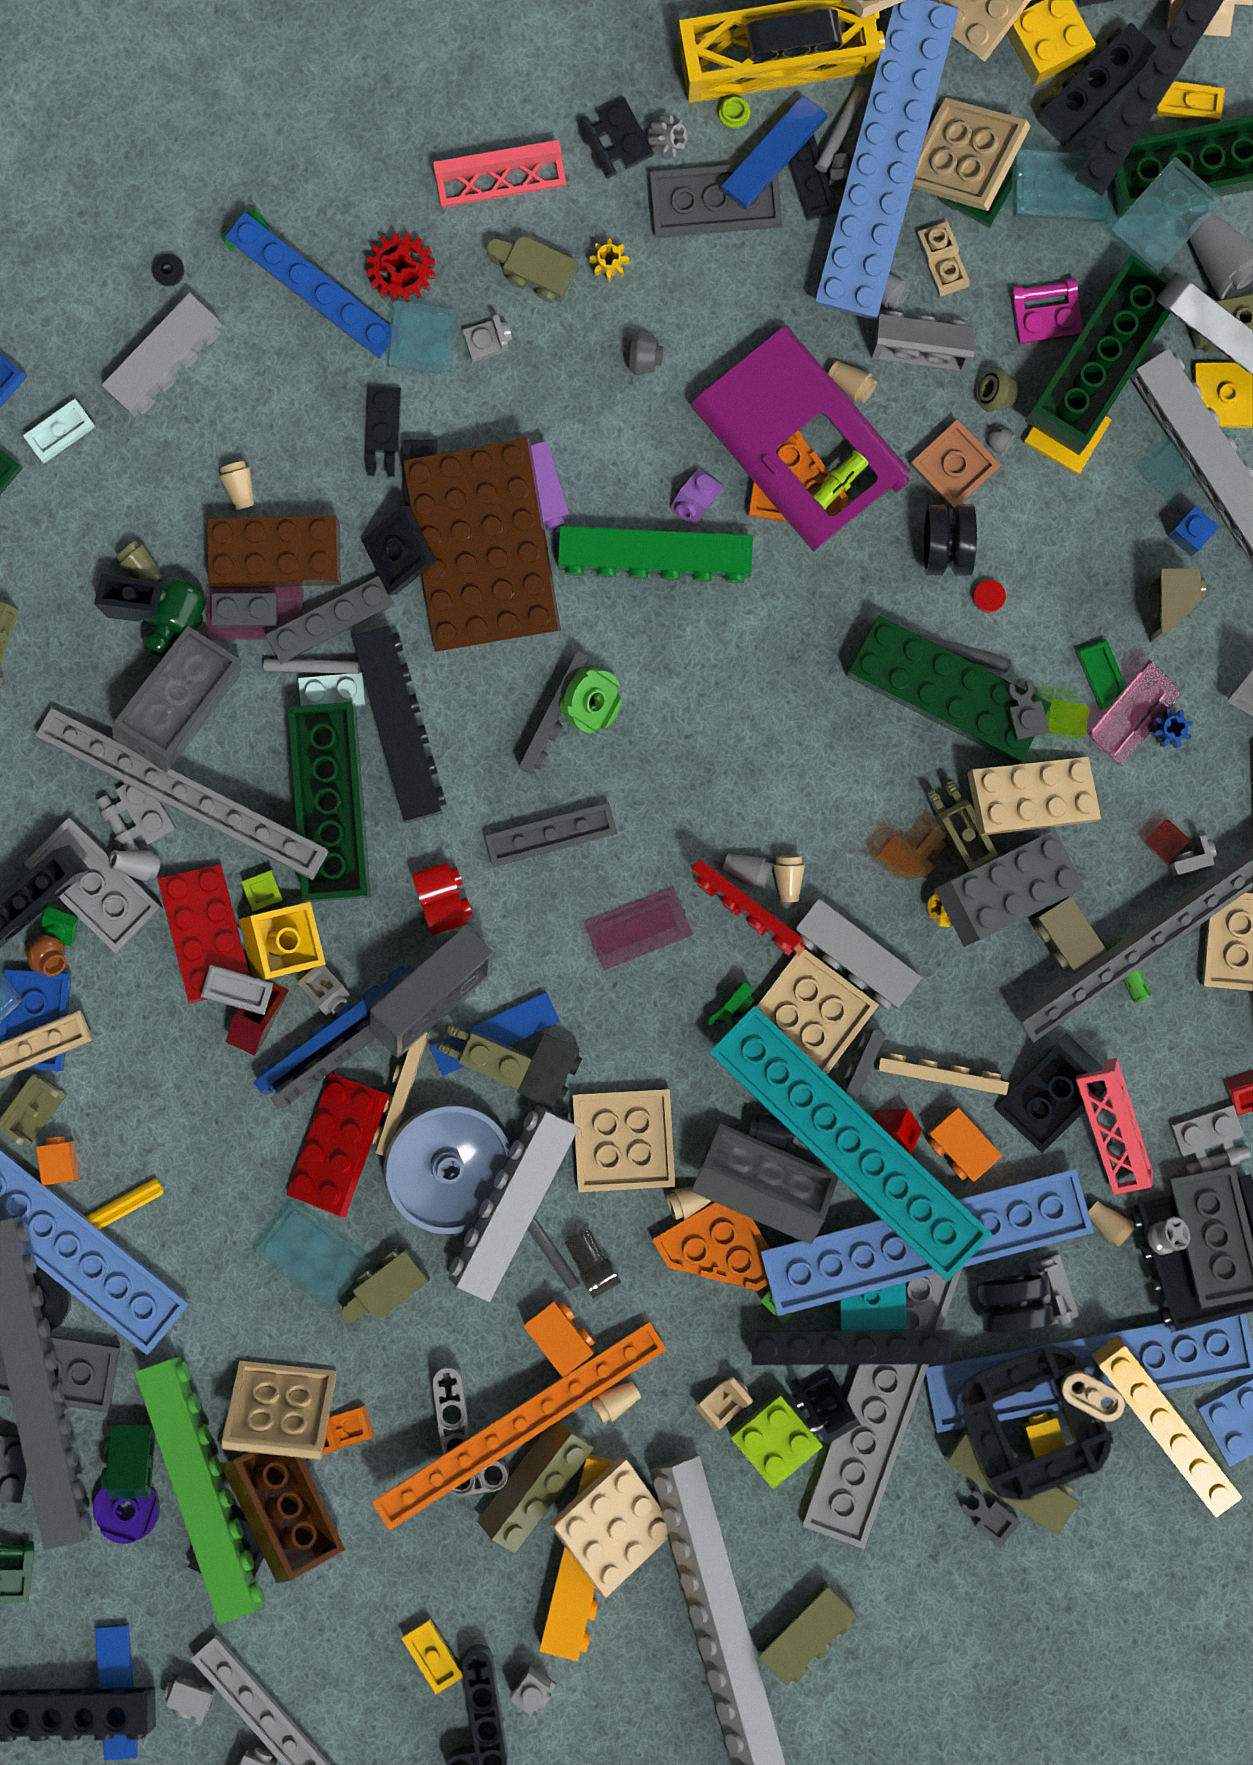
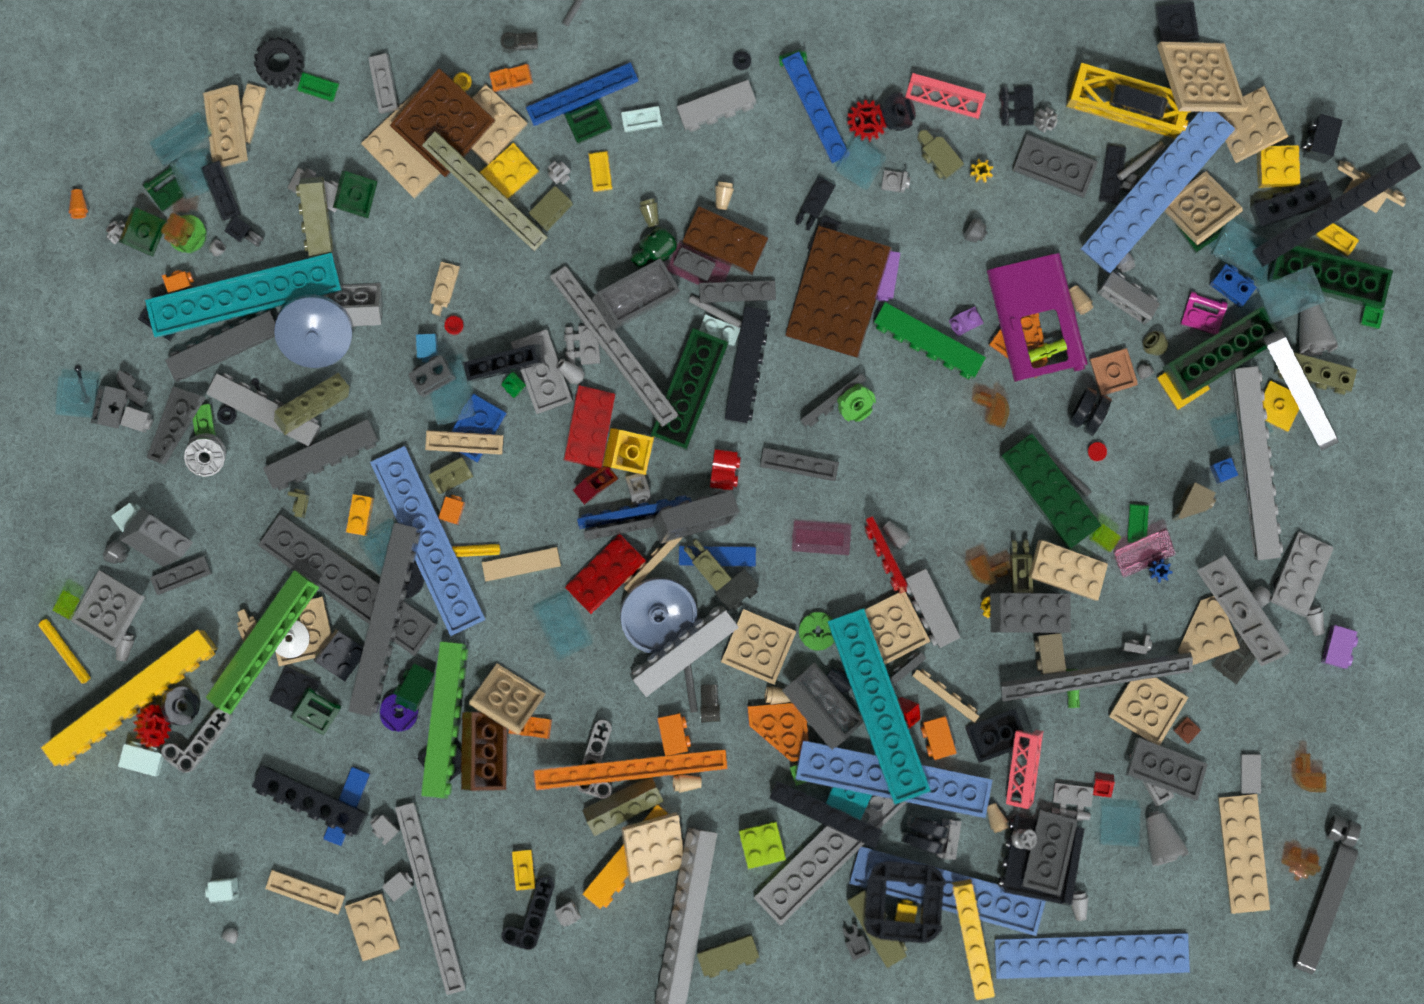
camera: 20 degrees right, 0 degrees up
(35, 540) = (600, 171): none -> yellow tile
(46, 955) = (499, 397): dark orange animal -> none
(128, 597) = (636, 227): black slope -> none
(203, 1192) = (521, 564): none -> tan tile
(237, 990) = (593, 465): light grey tile -> none
(262, 891) = (630, 419): lime plate -> none
(386, 1288) = (593, 663): olive hinge -> none
(398, 550) = (792, 272): black plate -> none
(439, 247) = (889, 109): none -> black plate
(694, 1089) = (809, 638): none -> bright green plate
(724, 1402) = (743, 812): tan bracket -> none
(734, 112) = (1088, 123): lime plate -> none
(738, 1002) = (856, 603): green plate -> none
(774, 152) = (1098, 156): blue tile -> none
(789, 876) = (915, 549): tan cone -> none
(810, 605) = (998, 411): none -> clear orange brick
(826, 1405) = (797, 840): black bracket -> none
(943, 259) = (1162, 258): tan slope -> none
(1027, 717) = (1084, 526): dark grey plate -> none
(1070, 247) = (1233, 285): none -> blue brick
(1091, 1394) = (941, 902): tan plate -> none
(1166, 841) = (1127, 629): clear red plate -> none

